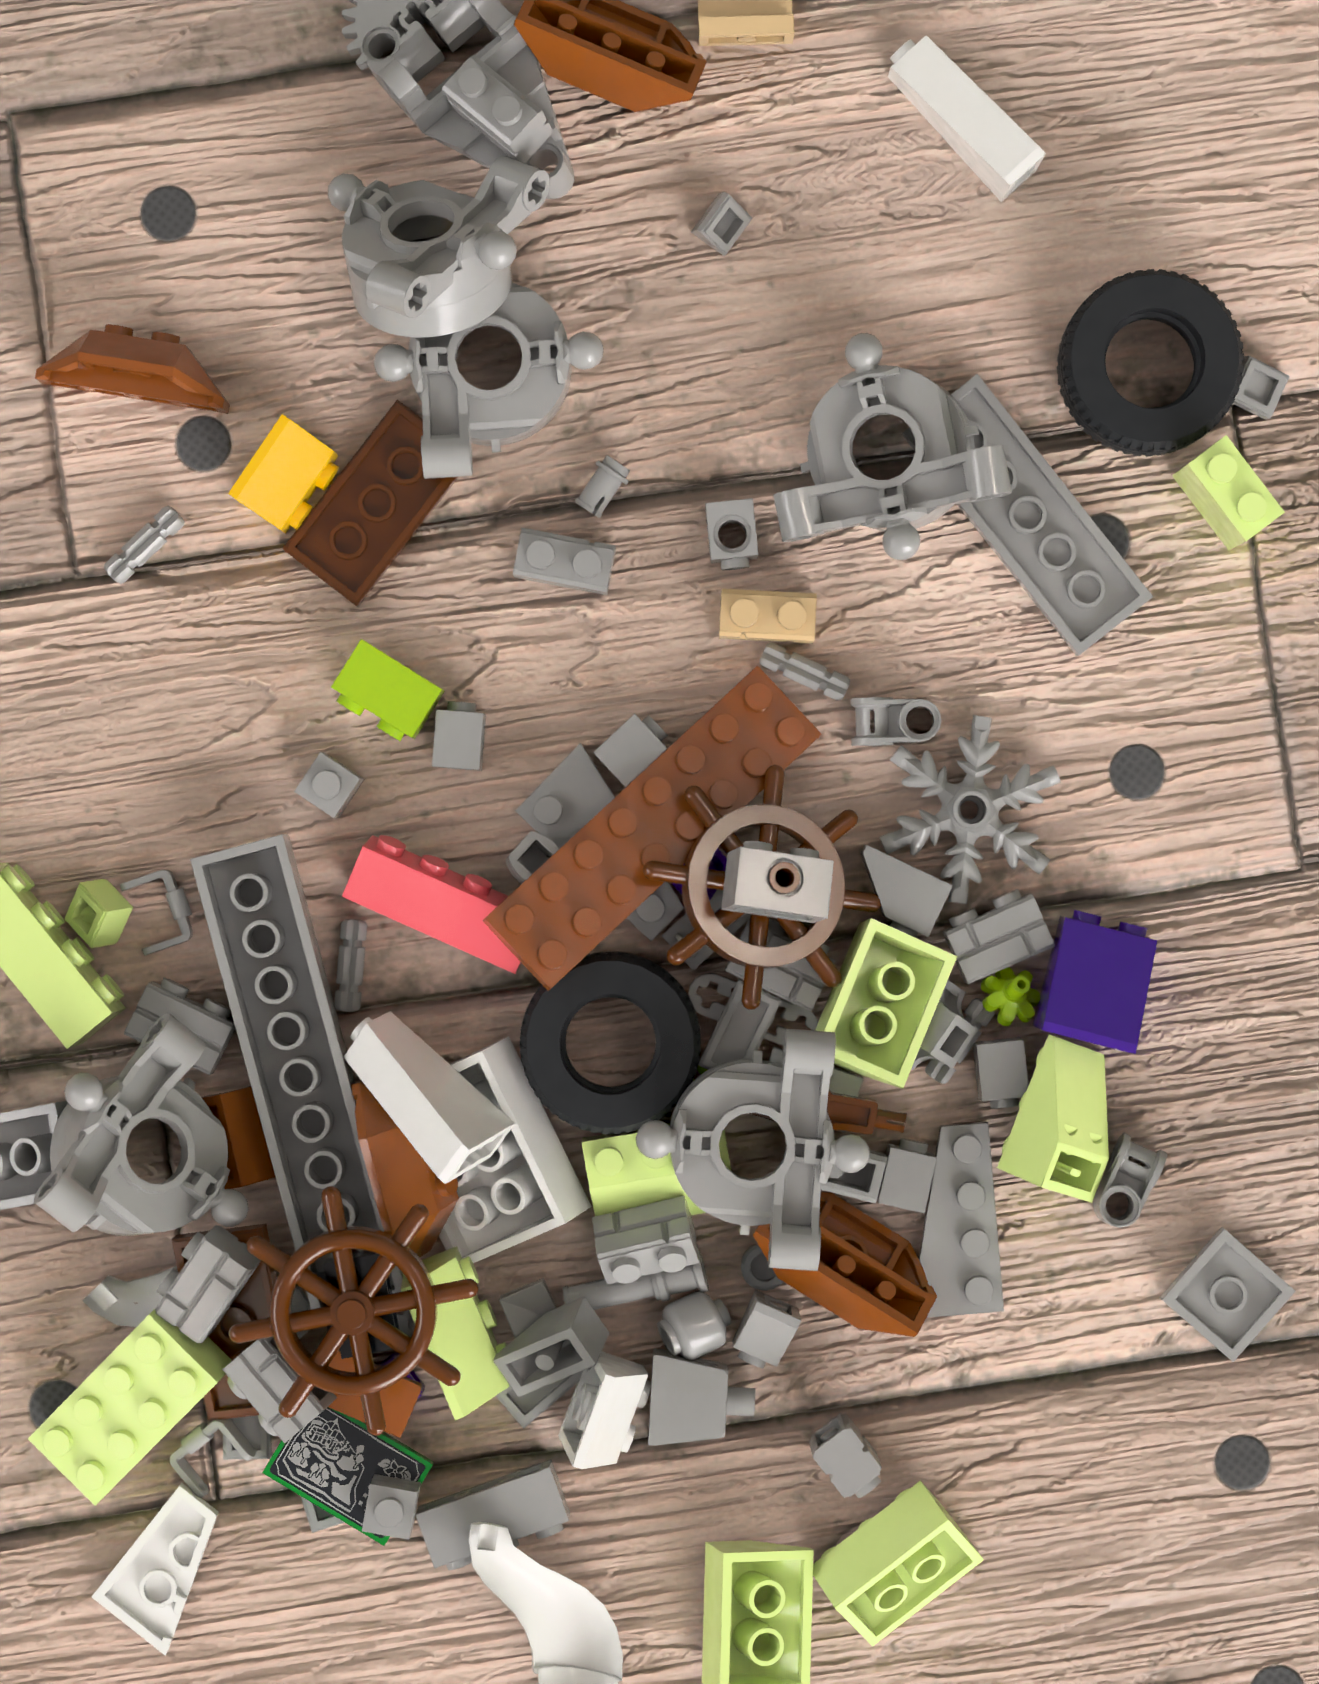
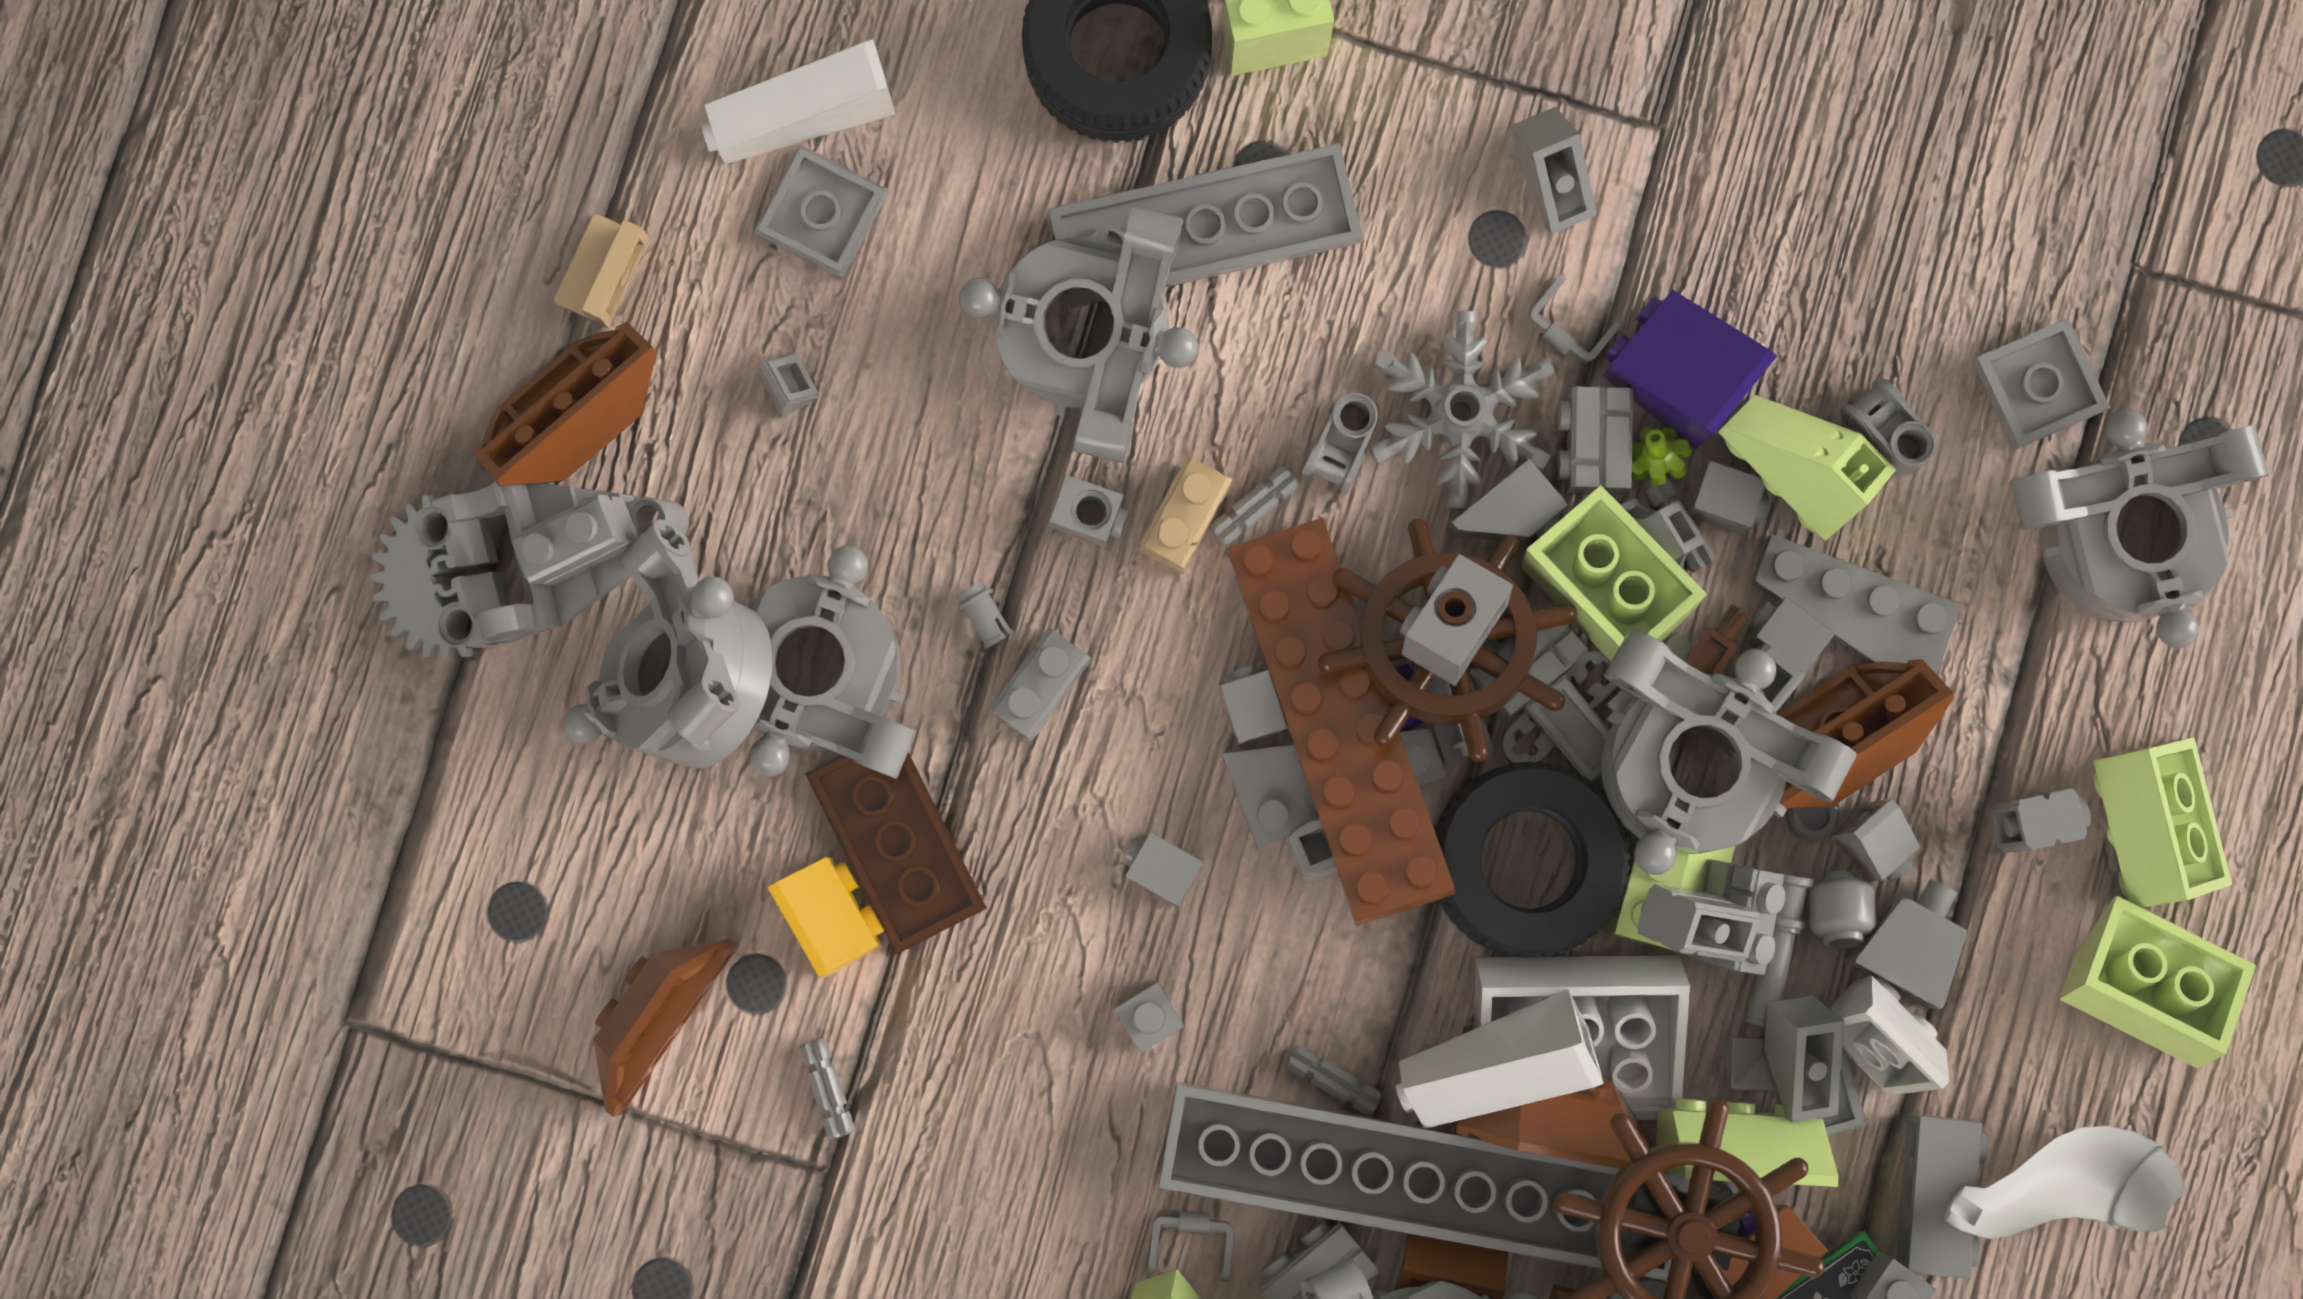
camera: 70 degrees left, 5 degrees down
(387, 690) = (1082, 916): lime brick -> none
(429, 898) = (1307, 969): coral brick -> none
(619, 1205) = (1698, 923): none -> light grey brick
(884, 179) = (821, 212): none -> light grey tile
(1074, 863) = (1559, 337): none -> light grey piece
(1136, 1374) = (2081, 512): none -> light grey piece
(1218, 792) = (1554, 168): none -> light grey slope

